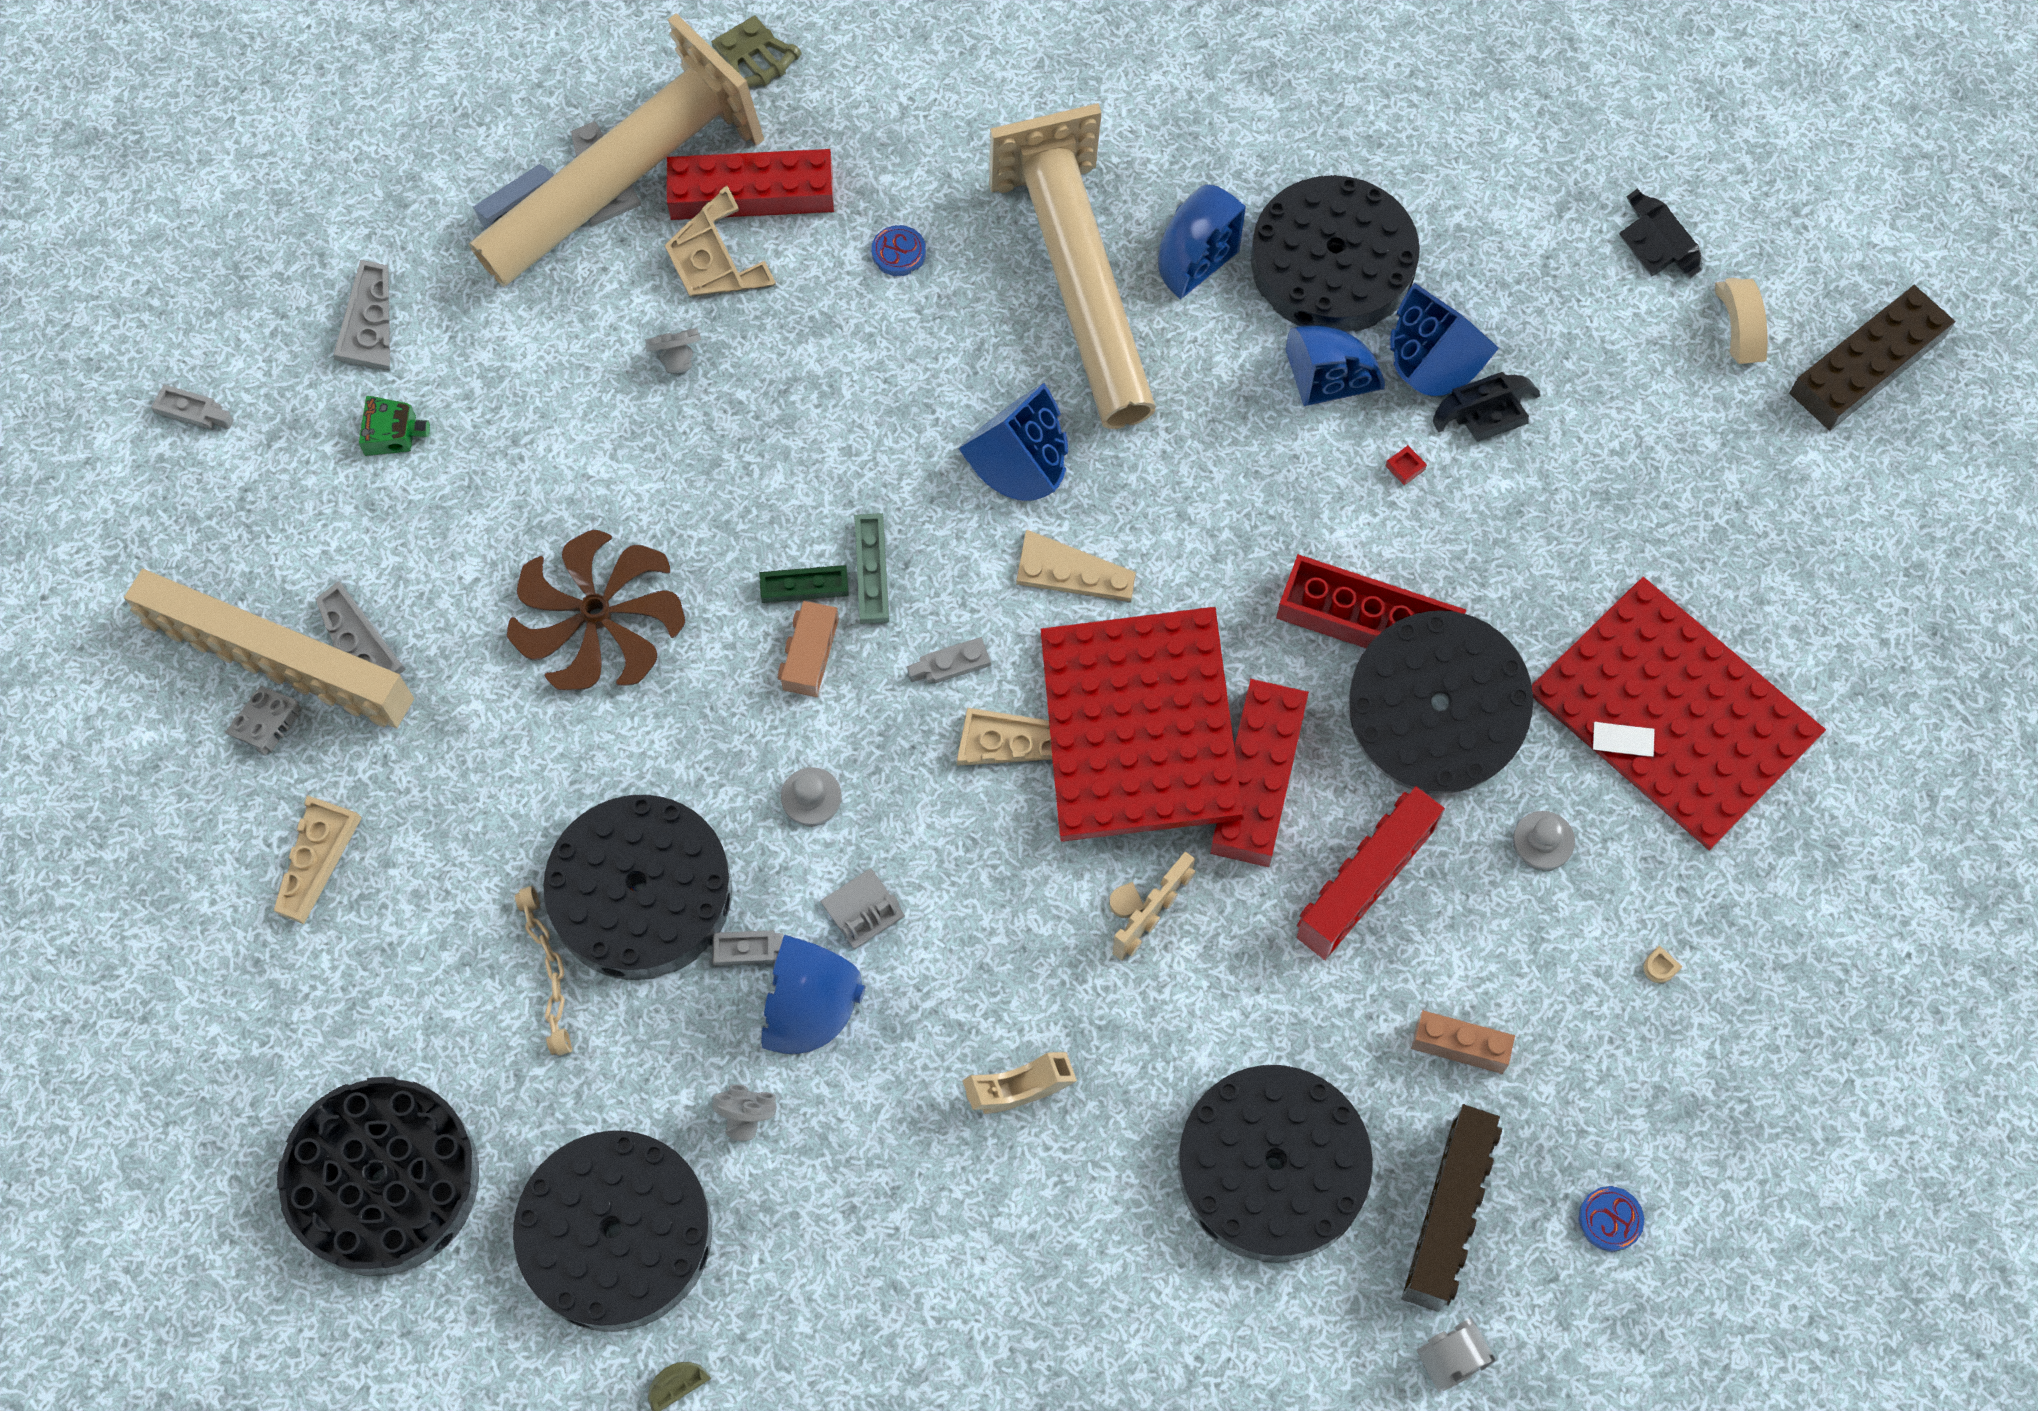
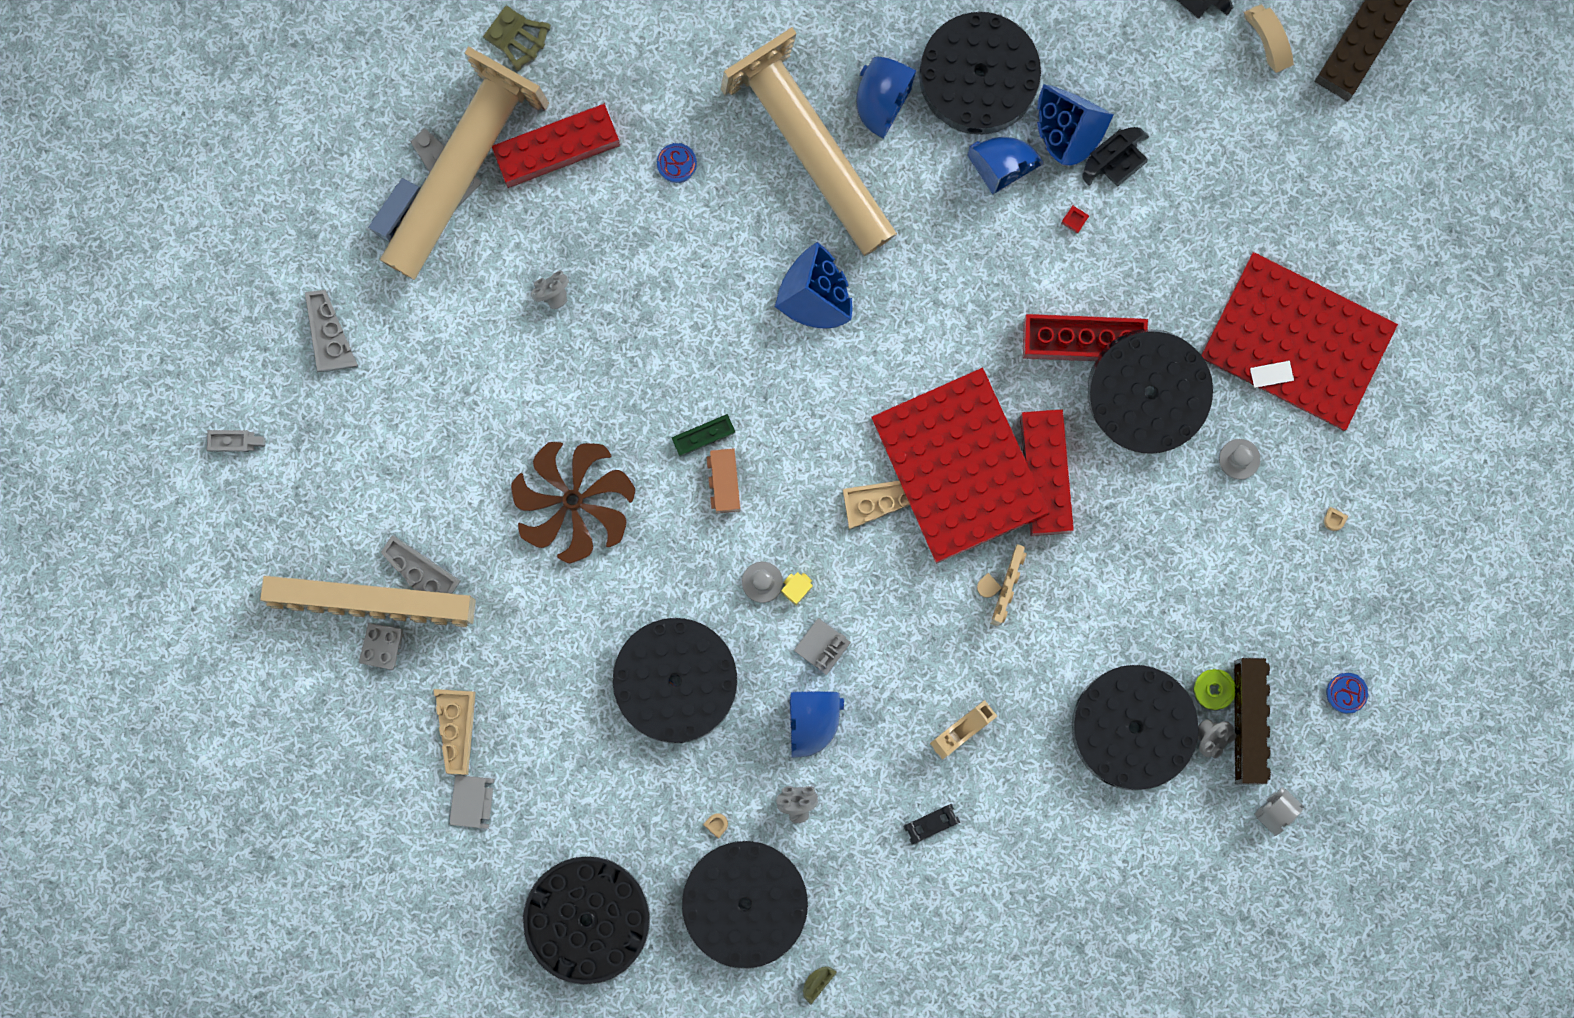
camera: 25 degrees left, 15 degrees up
(293, 962) = (471, 801): none -> light grey piece
(389, 427) = (378, 411): green torso -> none
(557, 1041) = (606, 712): tan piece -> none
(620, 1106) = (716, 824): none -> tan tile
(703, 258) = (545, 215): tan wing -> none
(746, 947) = (761, 696): light grey hinge -> none
(855, 817) = (796, 587): none -> light yellow brick
(871, 568) = (744, 409): sand green plate -> none
(928, 1207) = (931, 824): none -> black plate
(951, 662) = (820, 458): light grey hinge -> none
(1067, 569) = (873, 367): tan wing -> none
(1369, 873) = (1138, 521): red brick -> none
(1390, 1216) = (1214, 737): none -> light grey plate
(1405, 1165) = (1202, 689): none -> lime plate
(1463, 1042) = (1227, 612): nougat brick -> none

